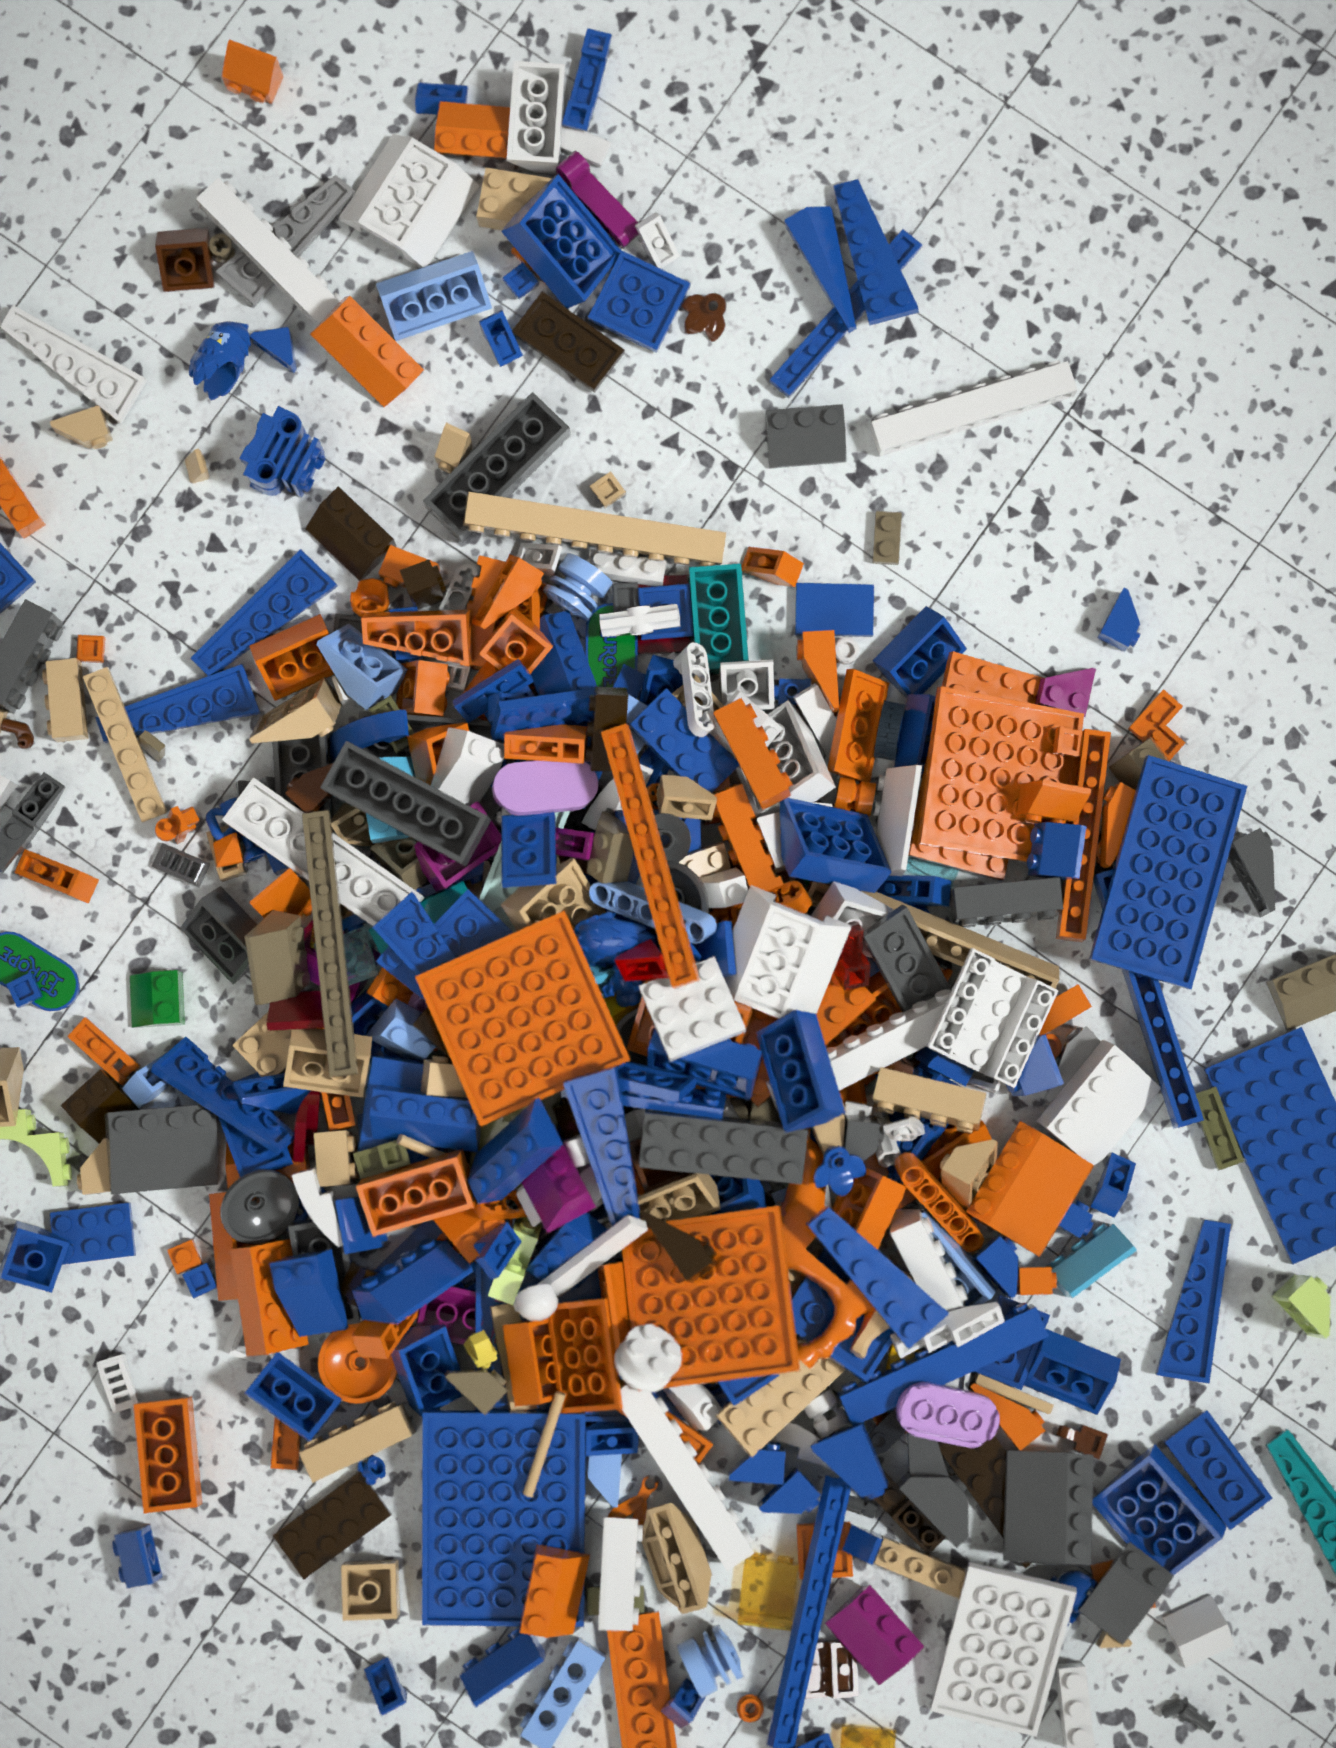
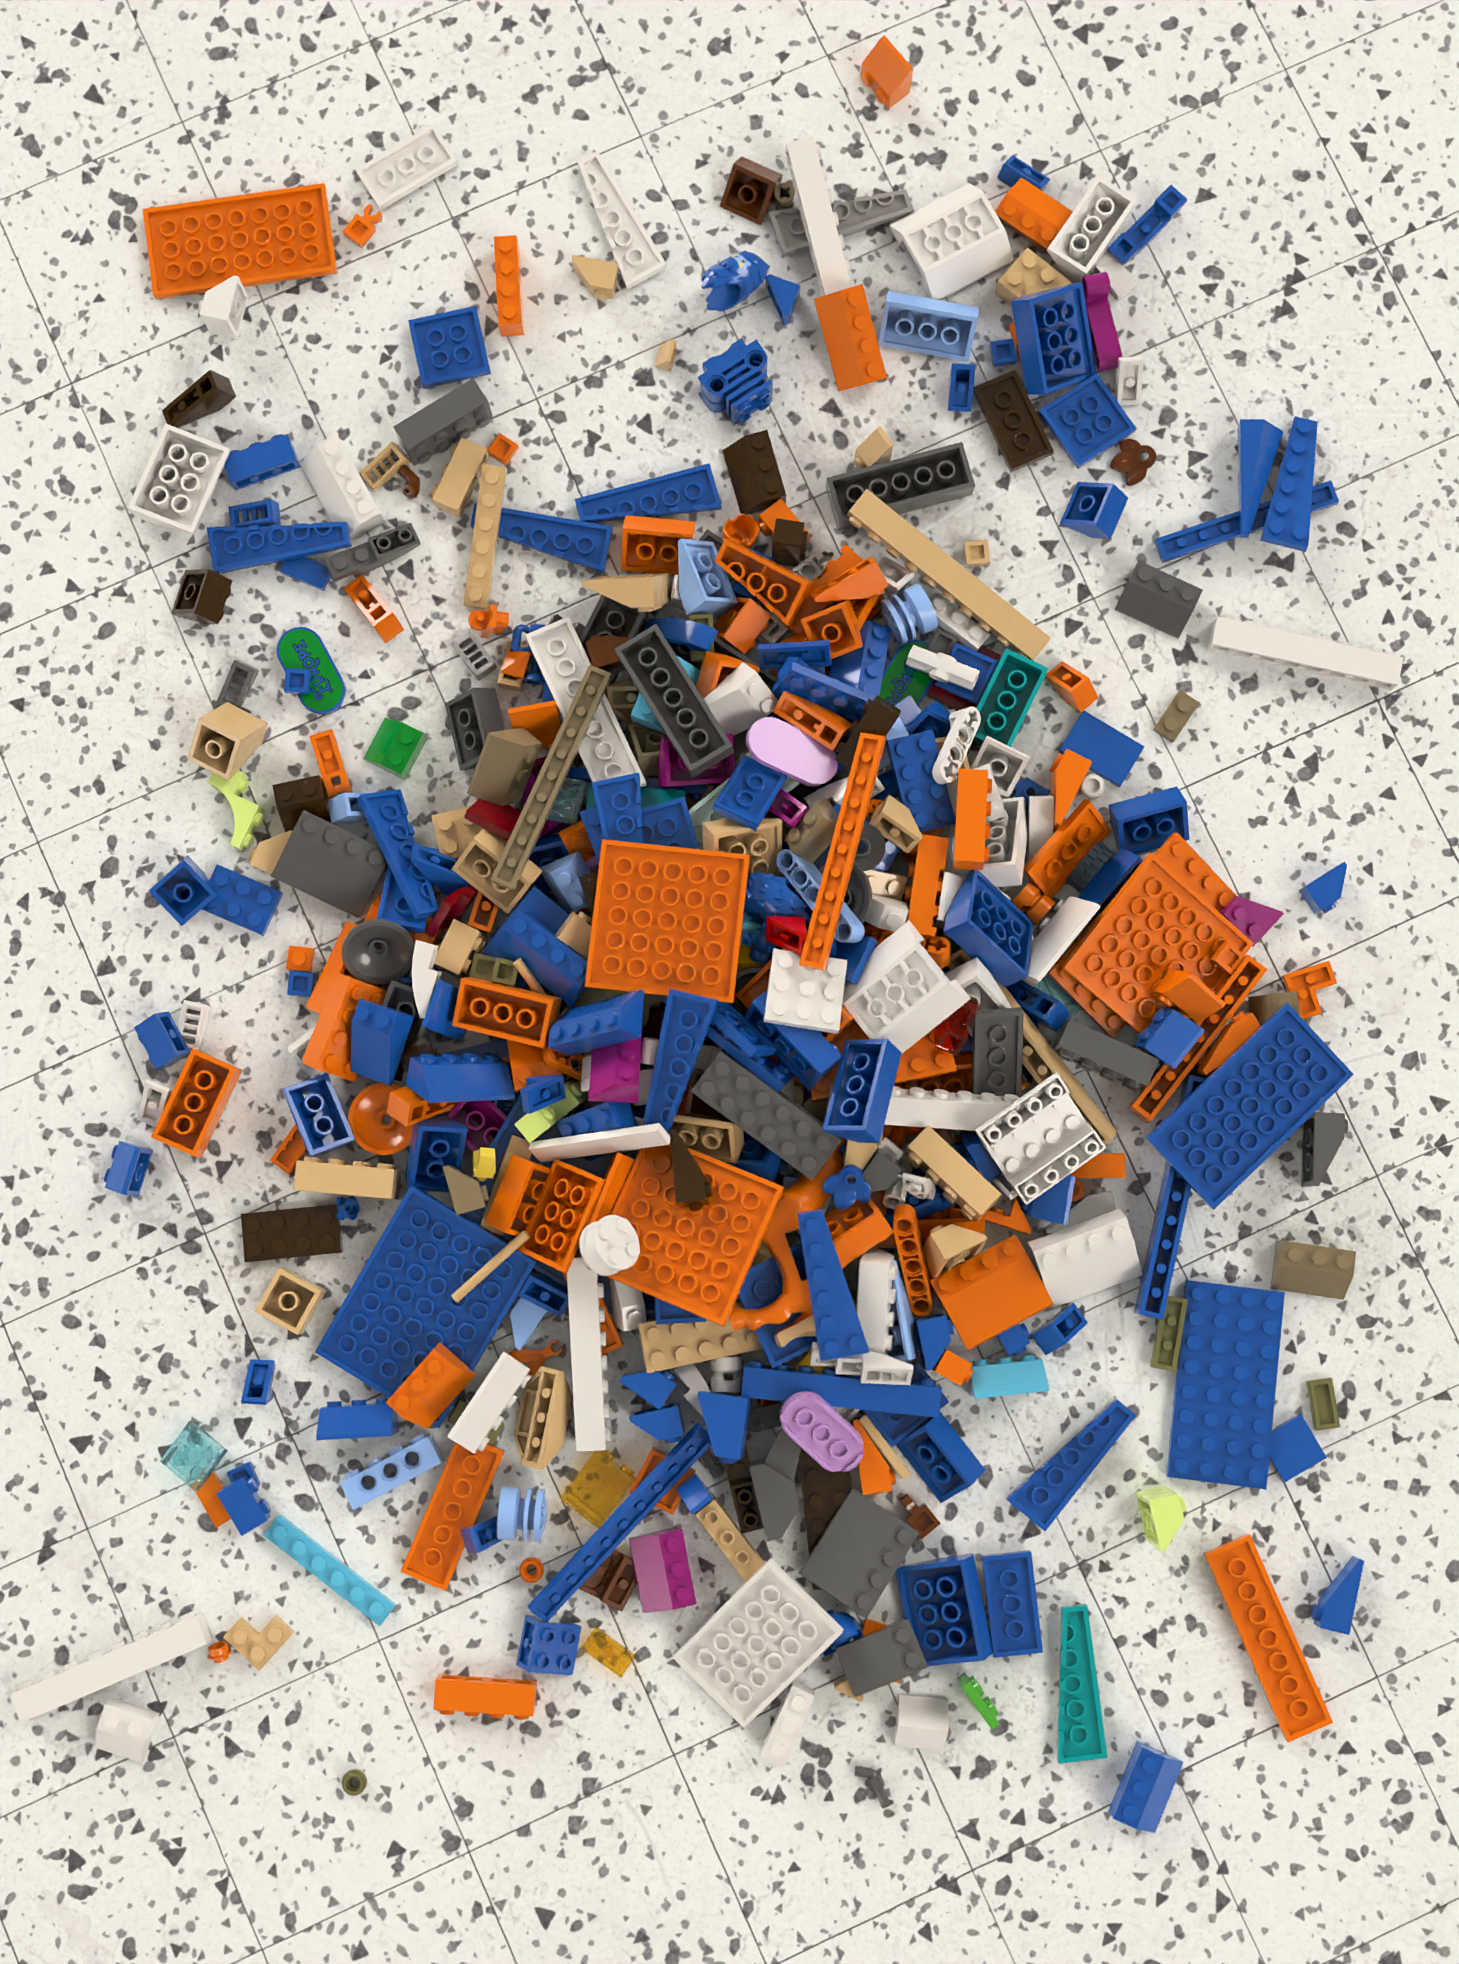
camera: 30 degrees right, 0 degrees up
(97, 1414) = (162, 1040): none -> blue brick
(126, 1479) = (153, 1103): none -> white slope
(152, 745) = (505, 550): dark tan tile -> none
(537, 1302) = (549, 1151): white hair -> none
(695, 383) = (1094, 509): none -> blue slope
(1012, 1107) = (1015, 1220): none -> orange slope
(1248, 1580) = (983, 1705): none -> bright green plate

